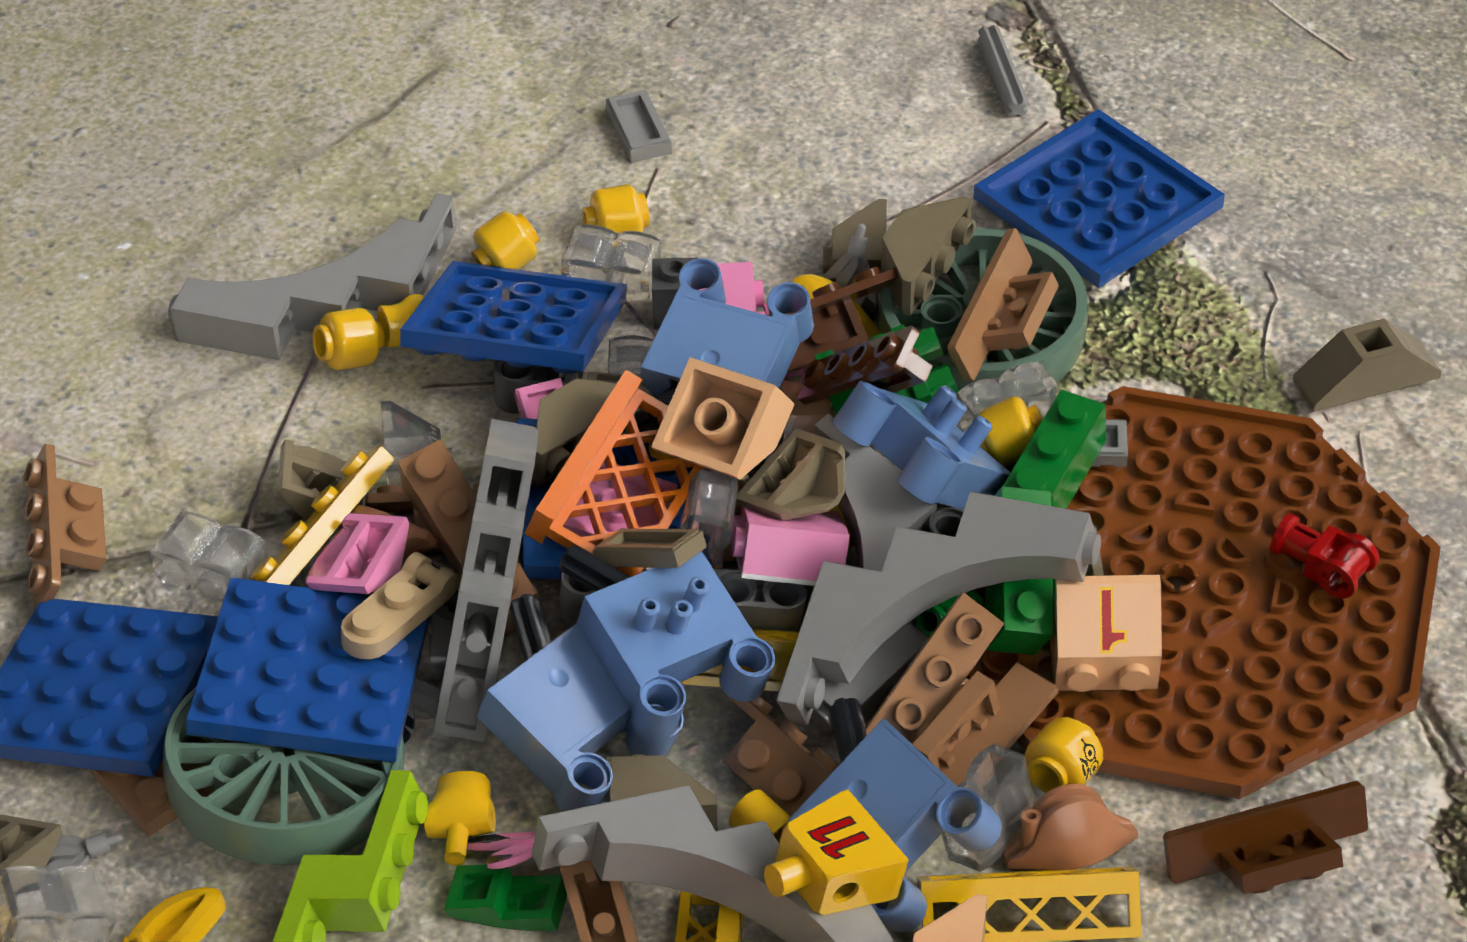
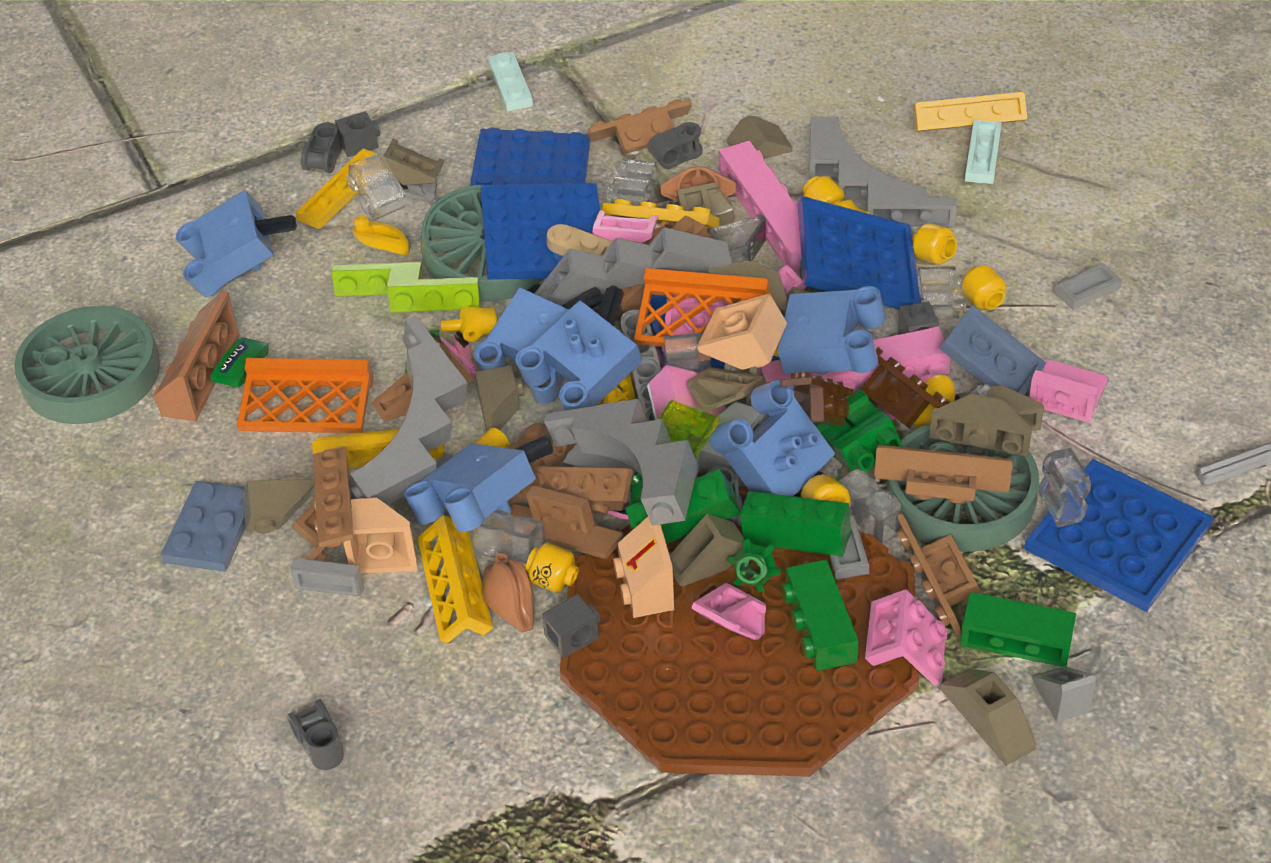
camera: 80 degrees right, 0 degrees up
(135, 488) = (675, 147): none -> dark grey piece
(159, 399) = (762, 134): none -> dark tan slope
(227, 151) = (963, 111): none -> yellow plate
(252, 472) = (697, 176): none -> nougat hat
(321, 157) = (983, 152): none -> light aqua plate
(333, 403) = (764, 195): none -> bright pink brick
(650, 547) = (633, 324): dark tan tile -> none
(765, 227) = (991, 352): none -> sand blue plate
(836, 858) = (418, 448): yellow torso -> none
(839, 184) = (1068, 390): none -> bright pink bracket
(870, 526) = (689, 424): none -> clear neon green slope
(1057, 198) = (1064, 487): none -> clear brick
(1121, 525) = (746, 573): none -> green rock
(1138, 361) = (945, 571): none -> medium nougat bracket
(1182, 569) = (733, 611): none -> bright pink slope
(1183, 747) = (571, 625): none -> dark grey brick
(1209, 477) = (820, 615): none -> green brick
(1239, 315) = (1018, 629): none -> green brick
(1246, 413) = (907, 629): none -> bright pink bracket
(1270, 841) = (517, 695): reddish brown bracket -> none
(1326, 554) = (766, 690): red connector -> none
(1342, 294) = (1066, 691): none -> light grey slope

